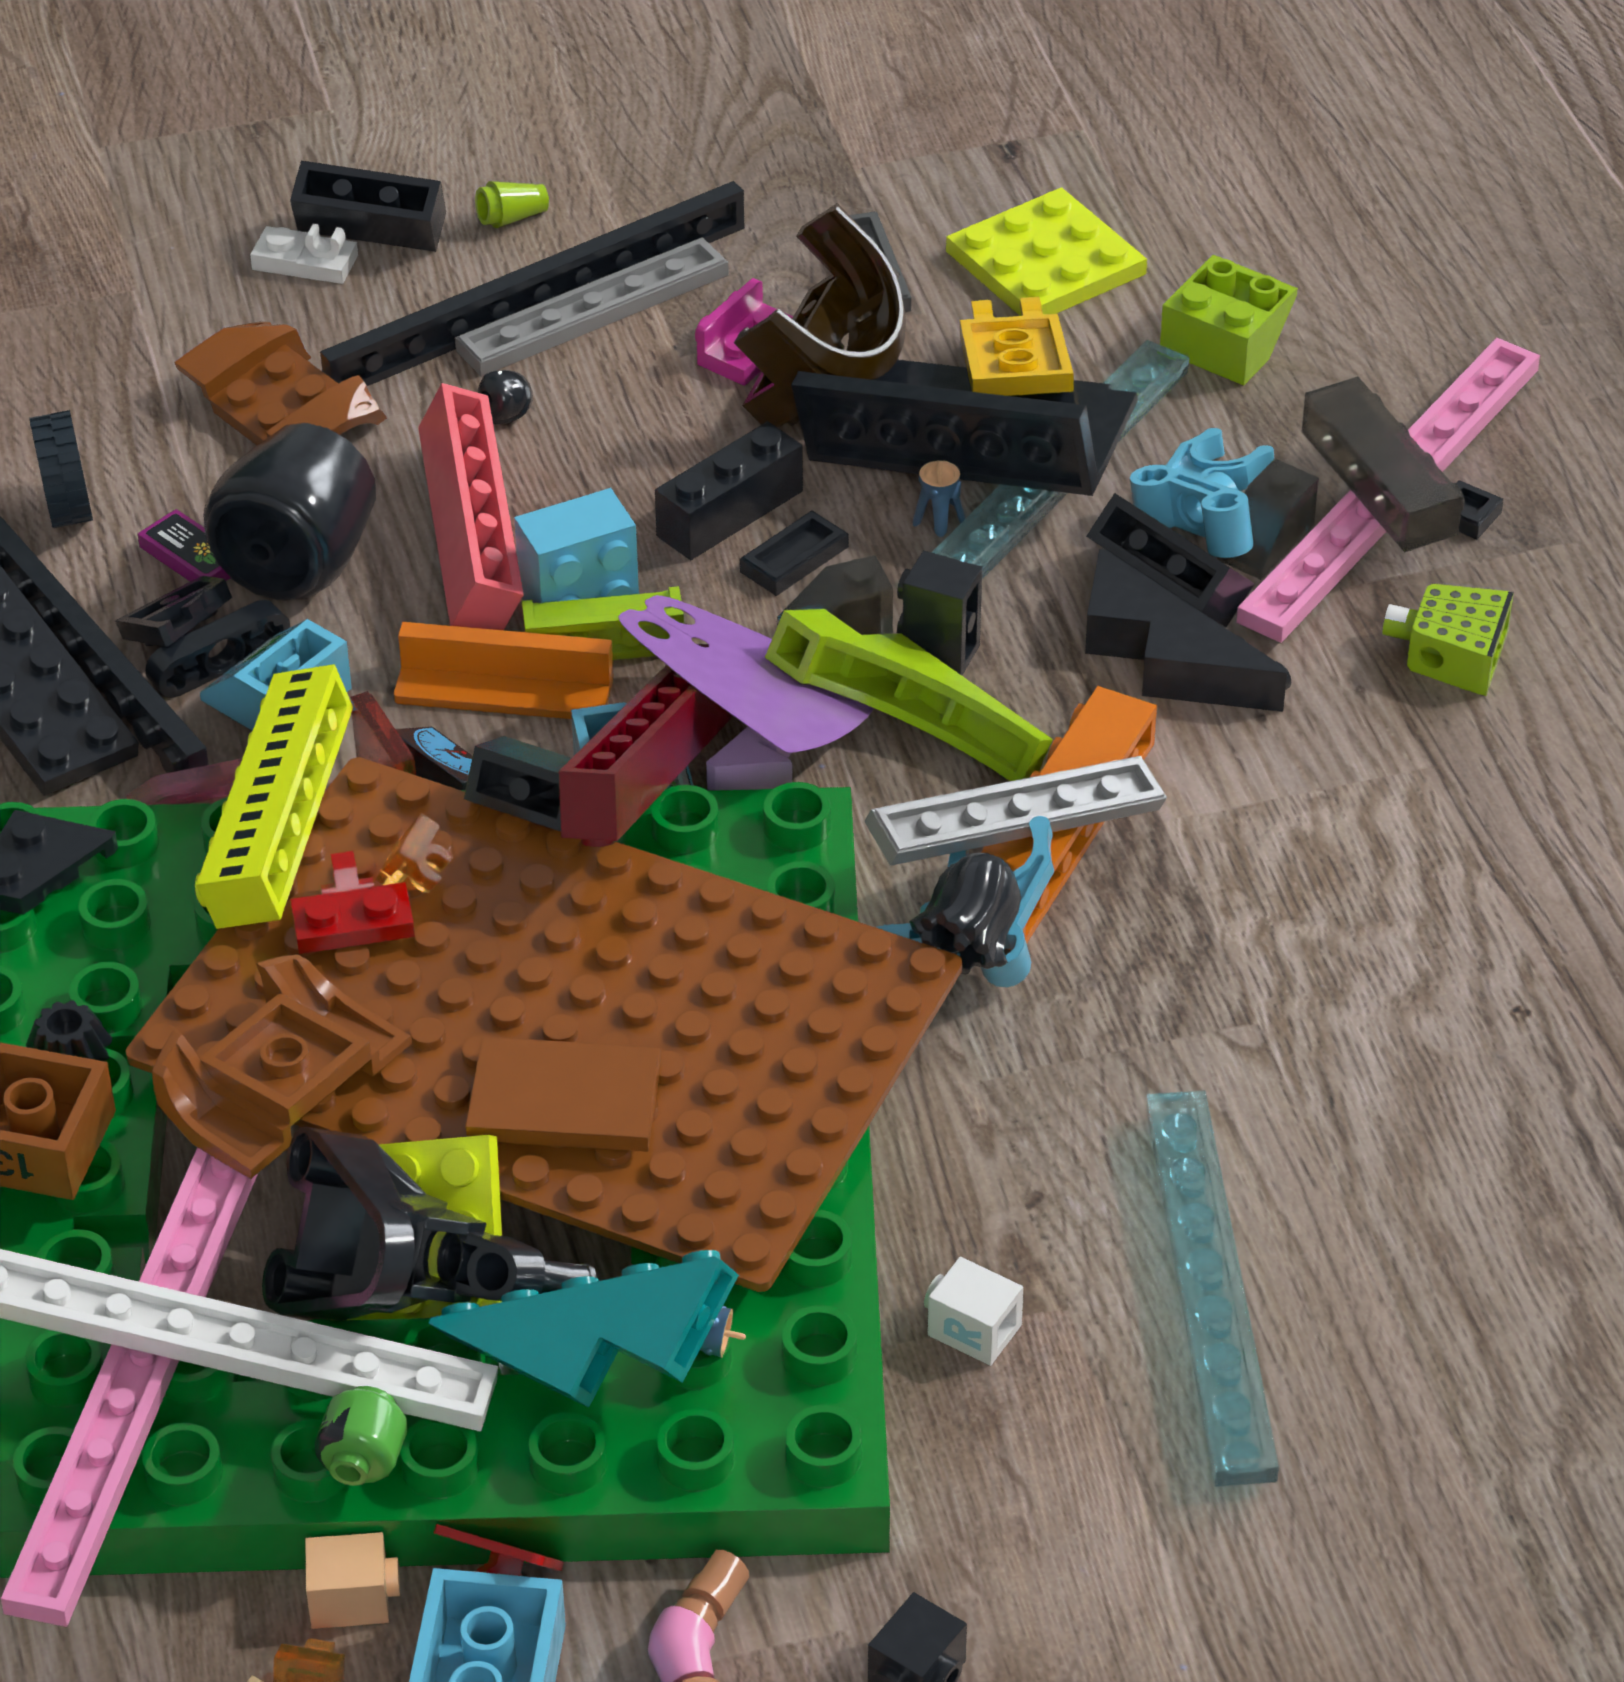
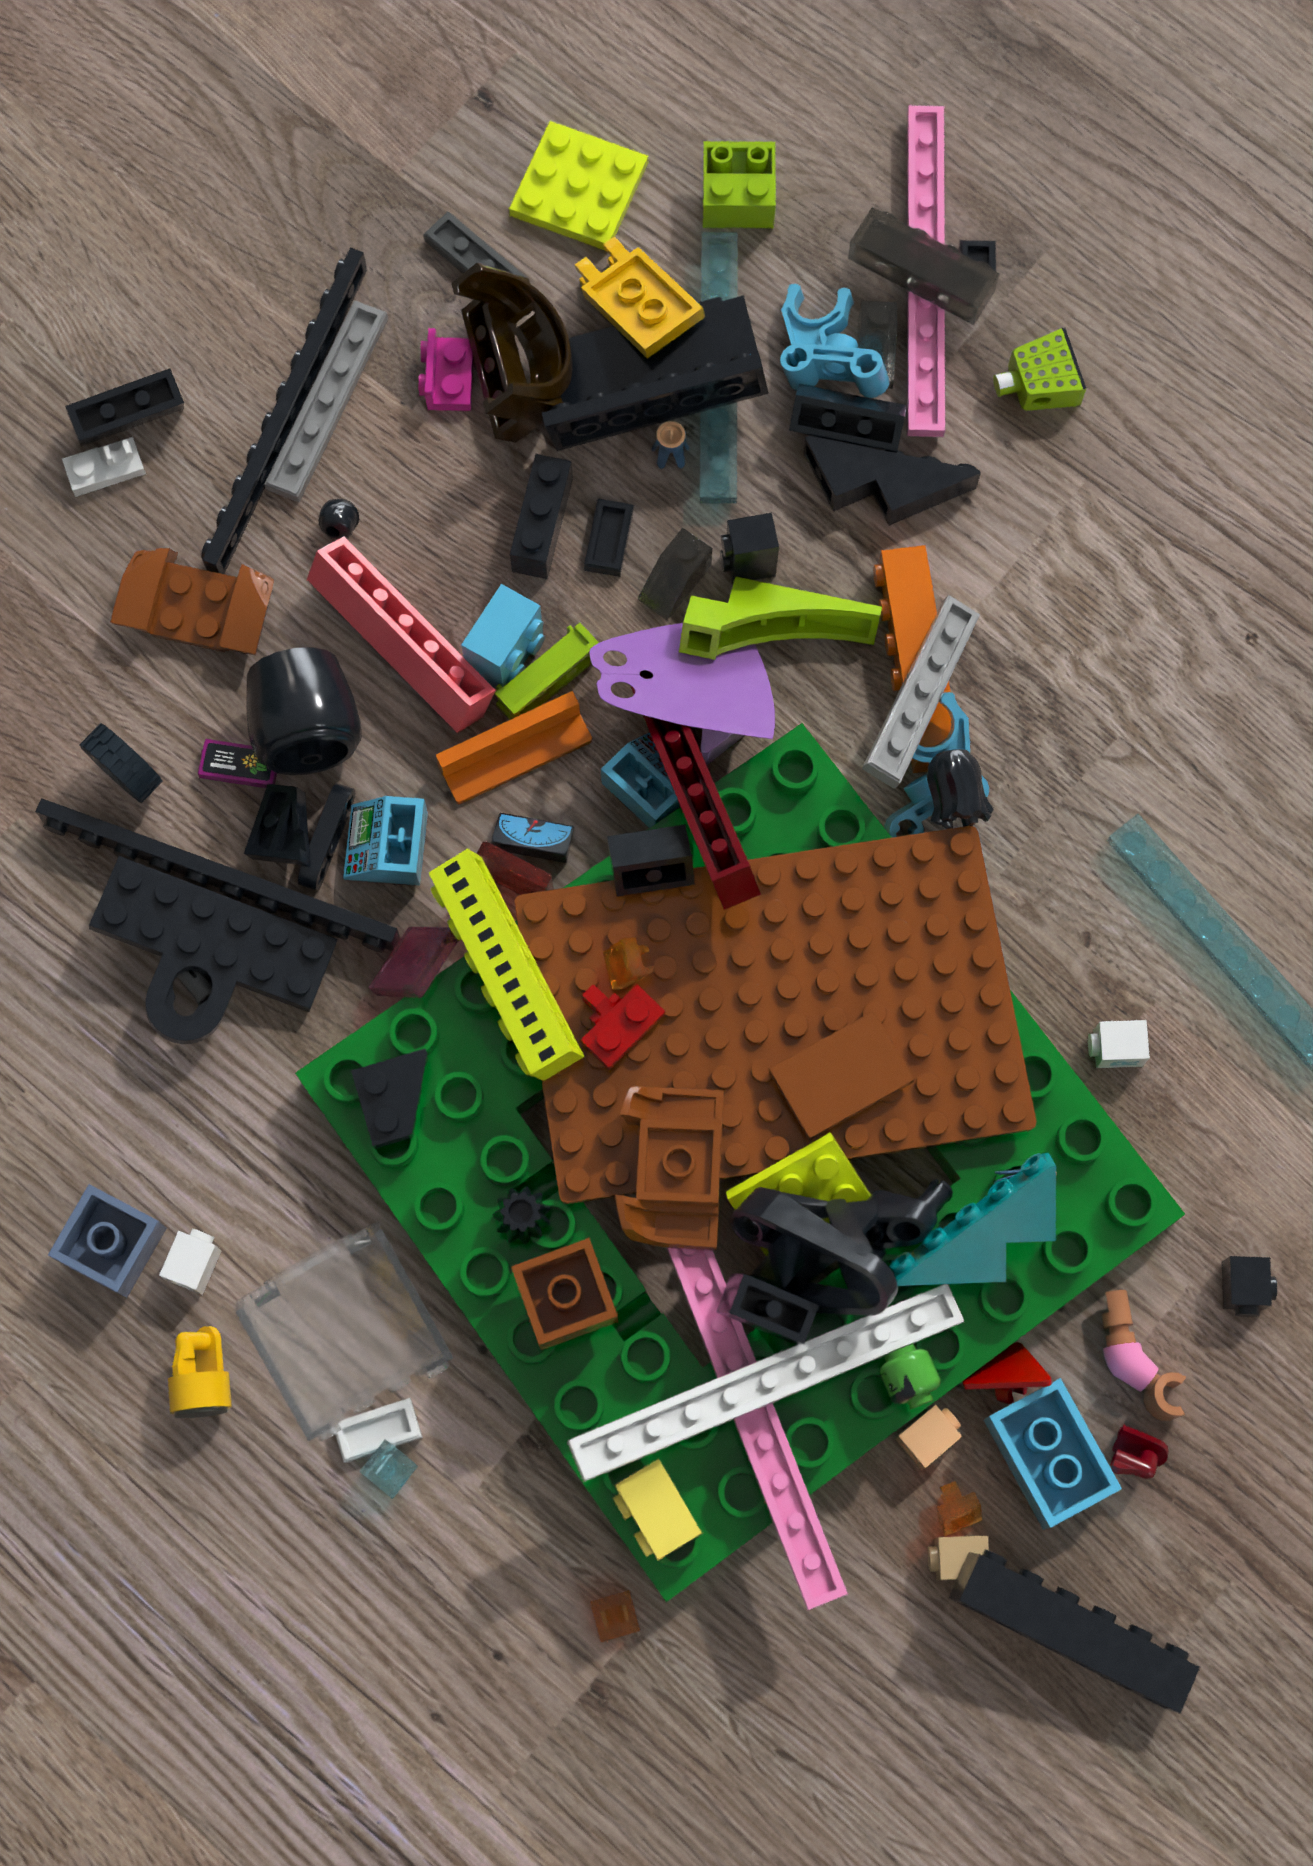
camera: 35 degrees left, 30 degrees up
(246, 1245) = (767, 1308): none -> black brick
(509, 202) = (206, 342): lime cone -> none

